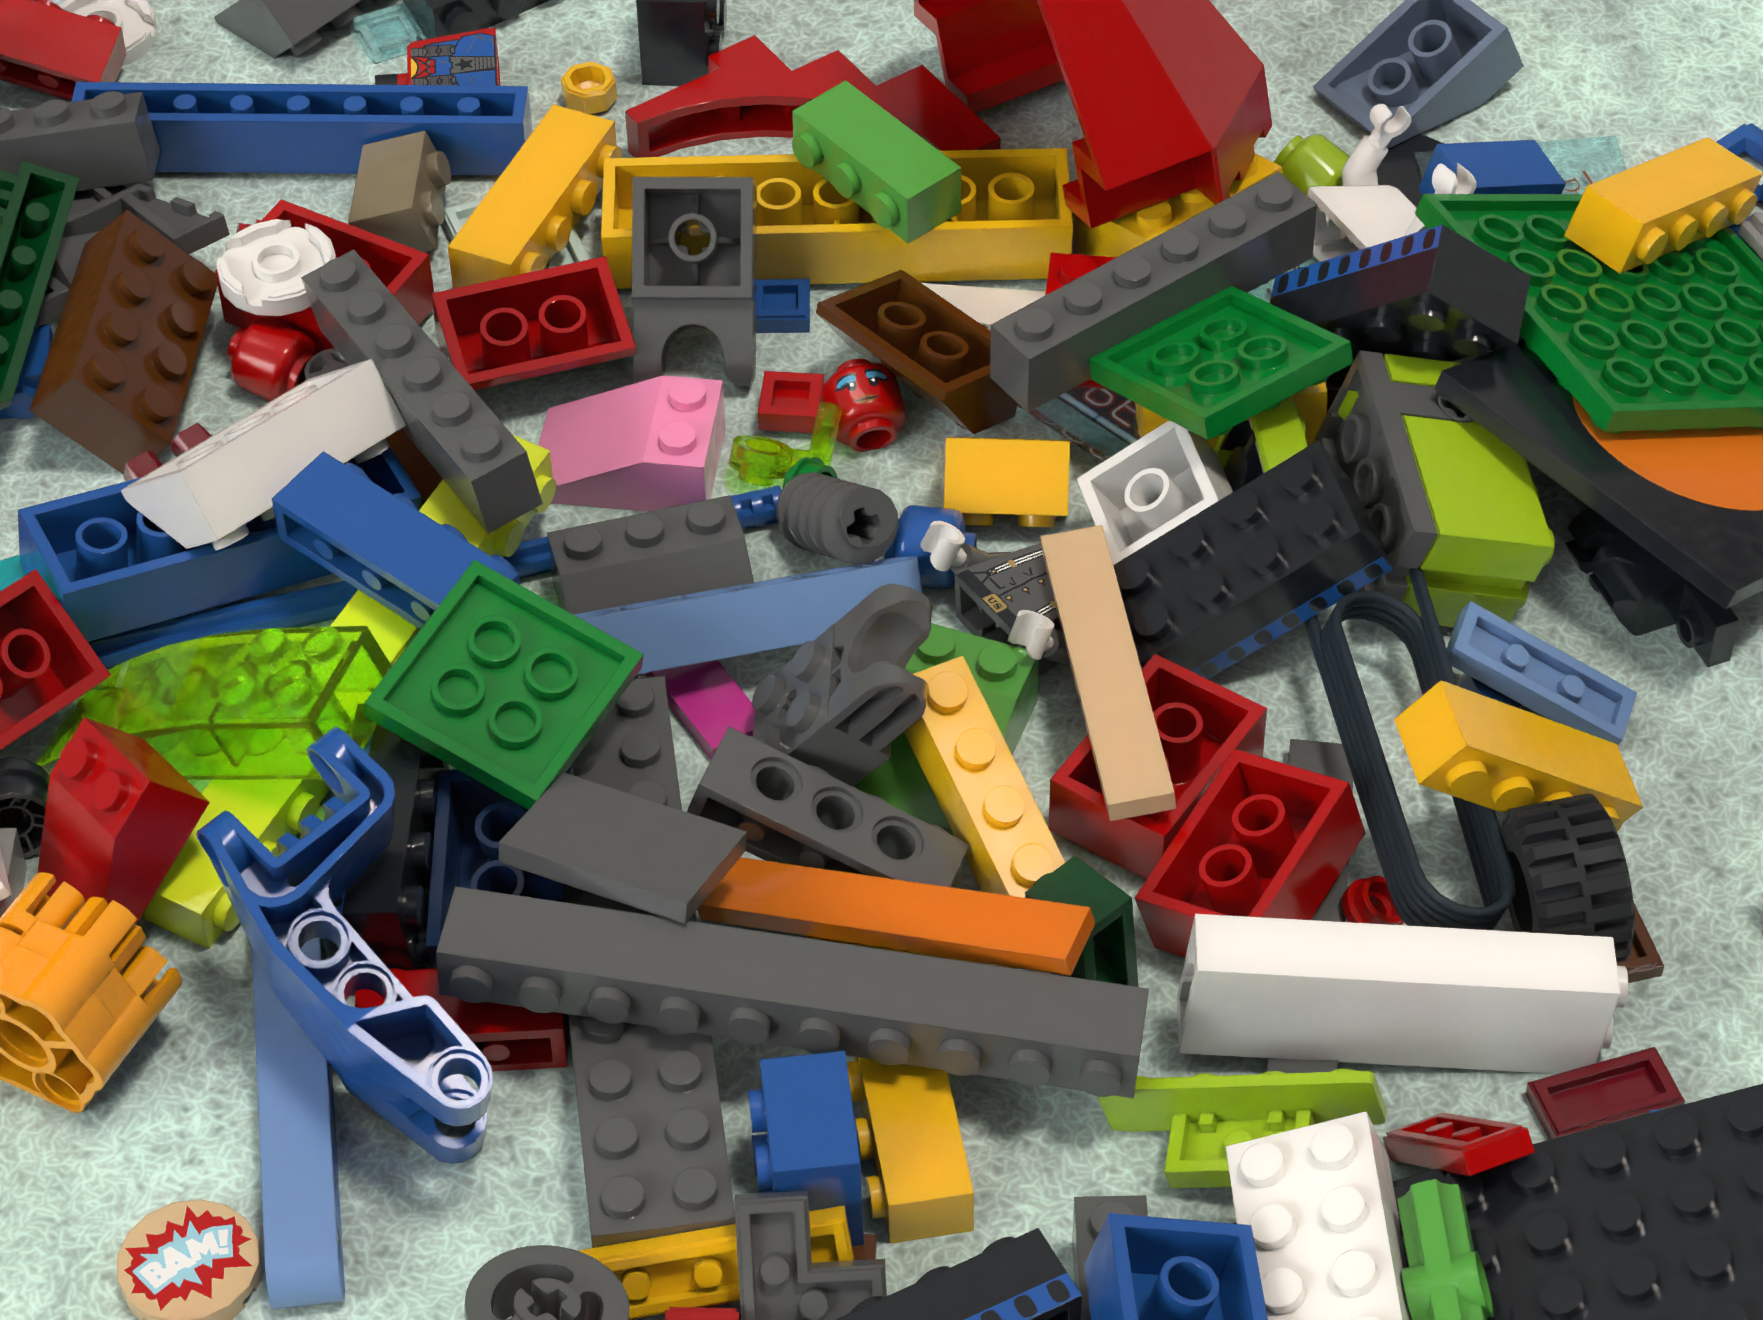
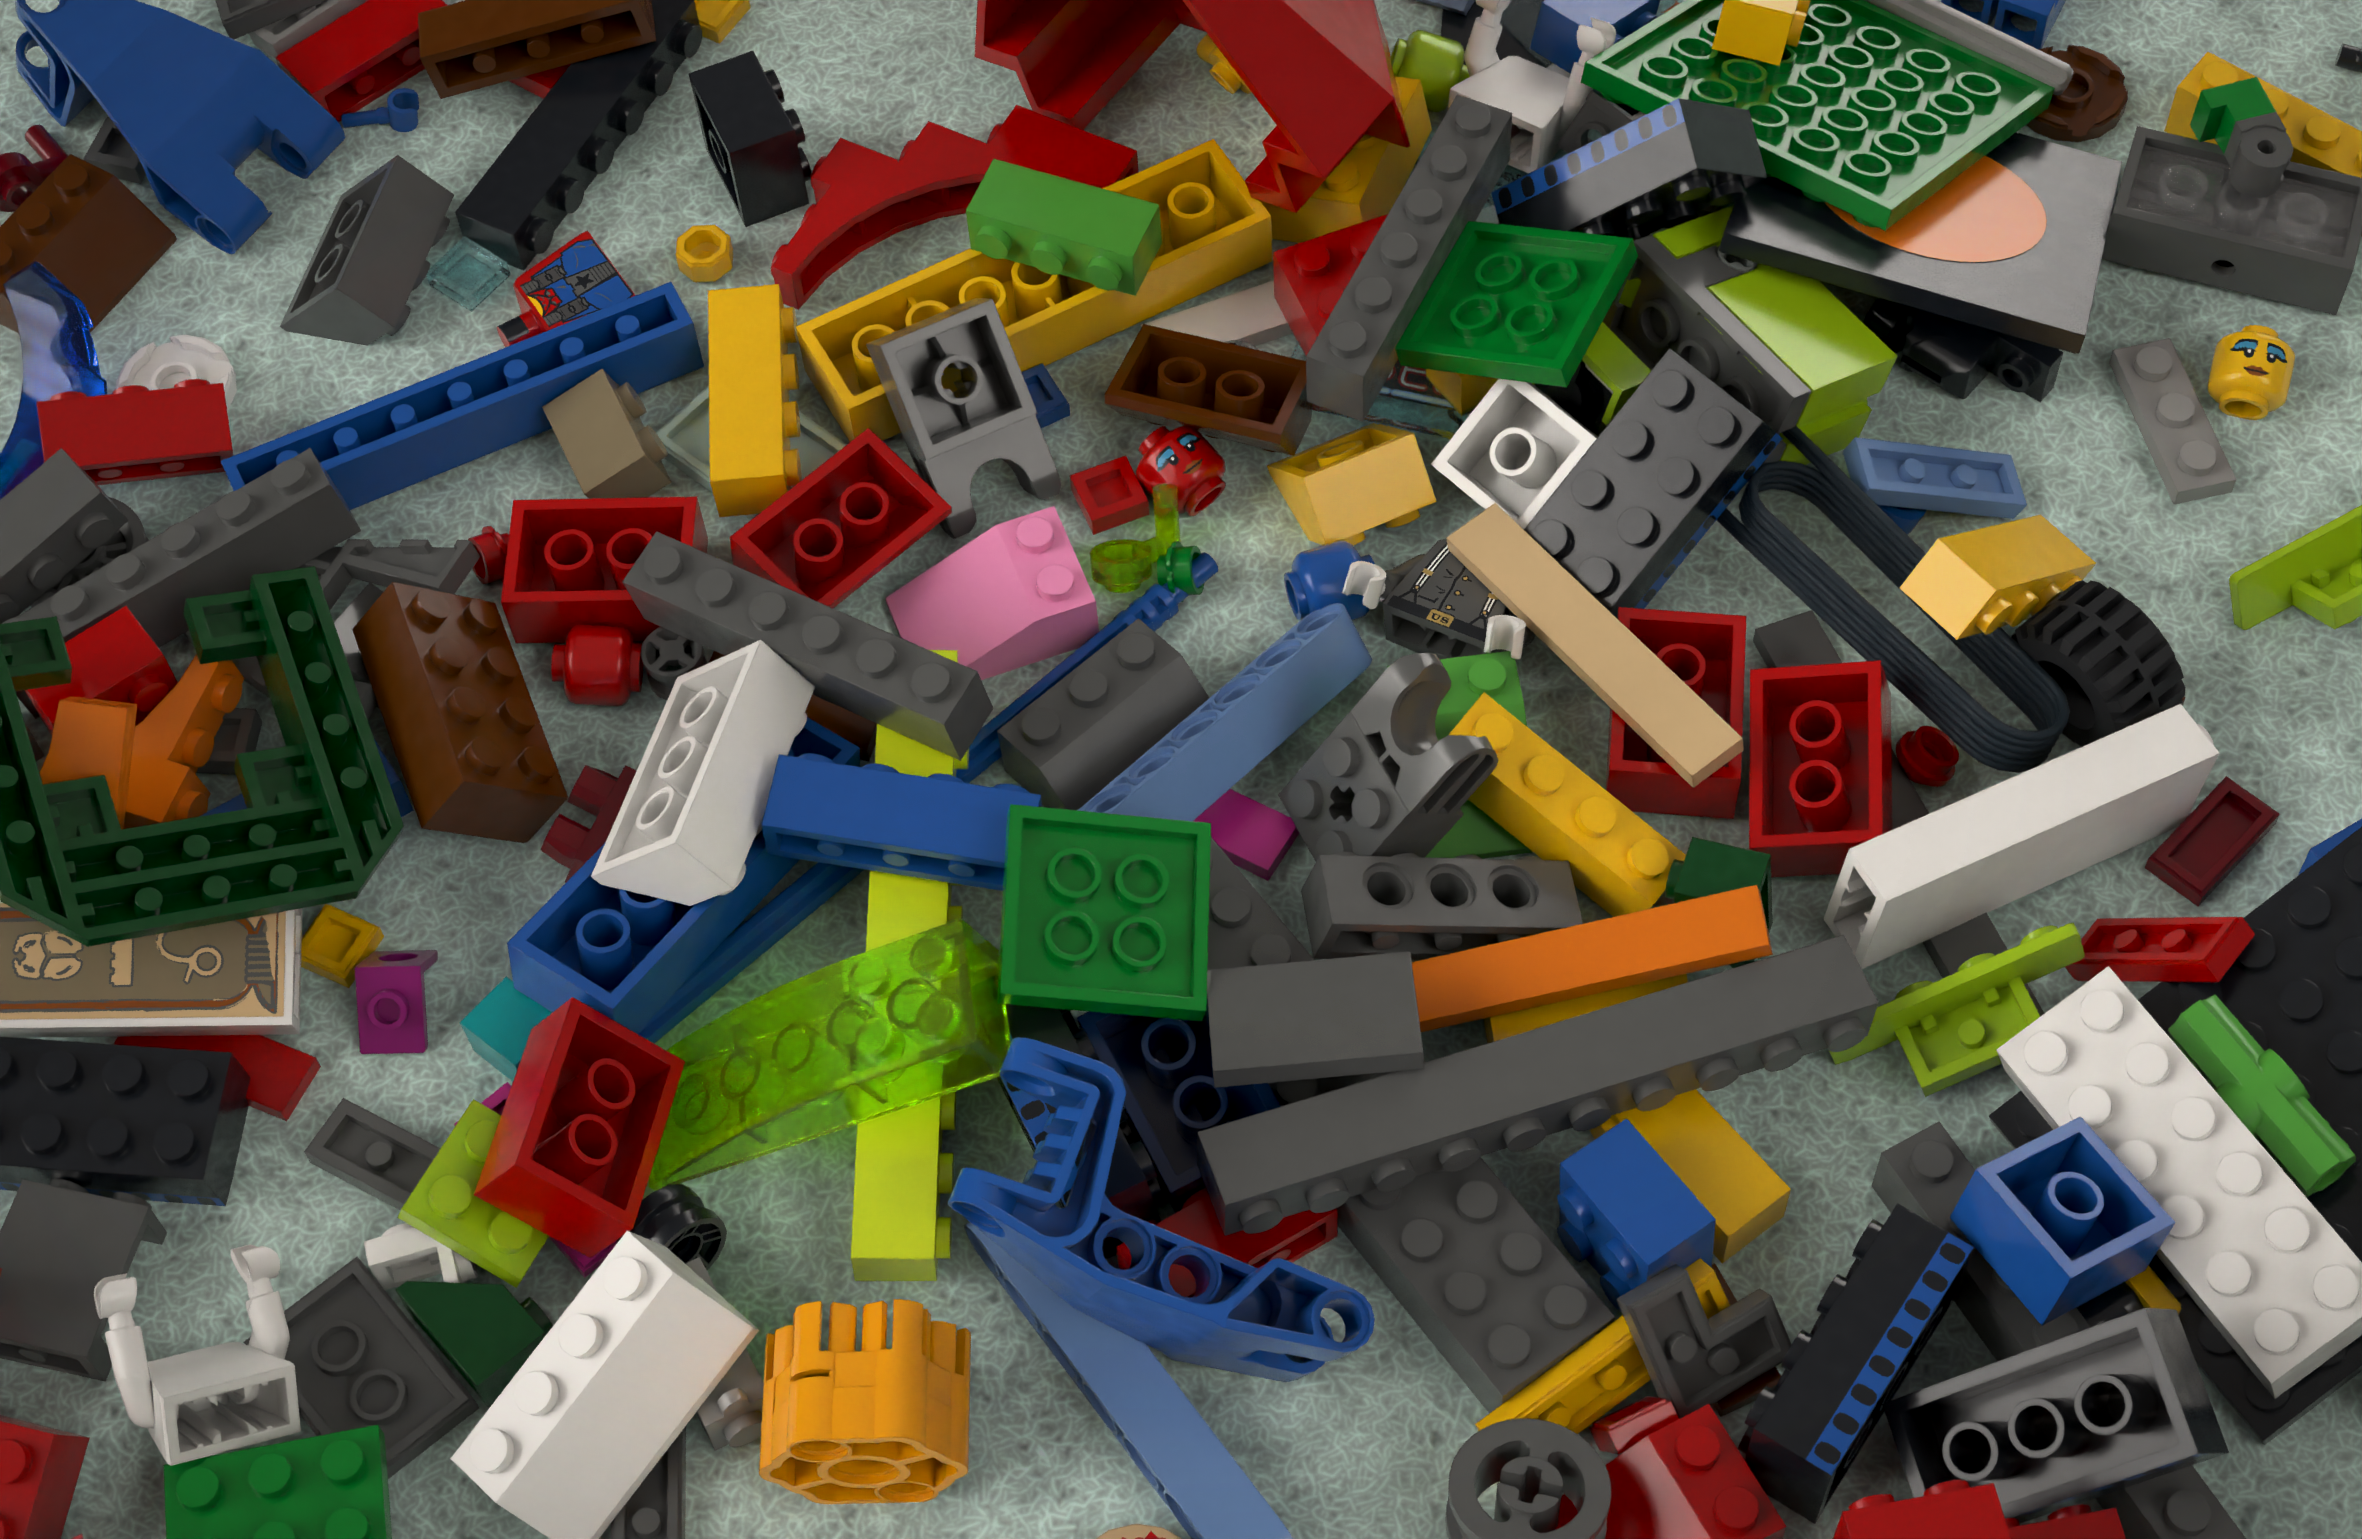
camera: 25 degrees left, 10 degrees up
(115, 817) = (810, 1220): red slope -> none
(266, 266) = (564, 574): white tile -> none
(836, 518) = (1242, 596): dark grey piece -> none

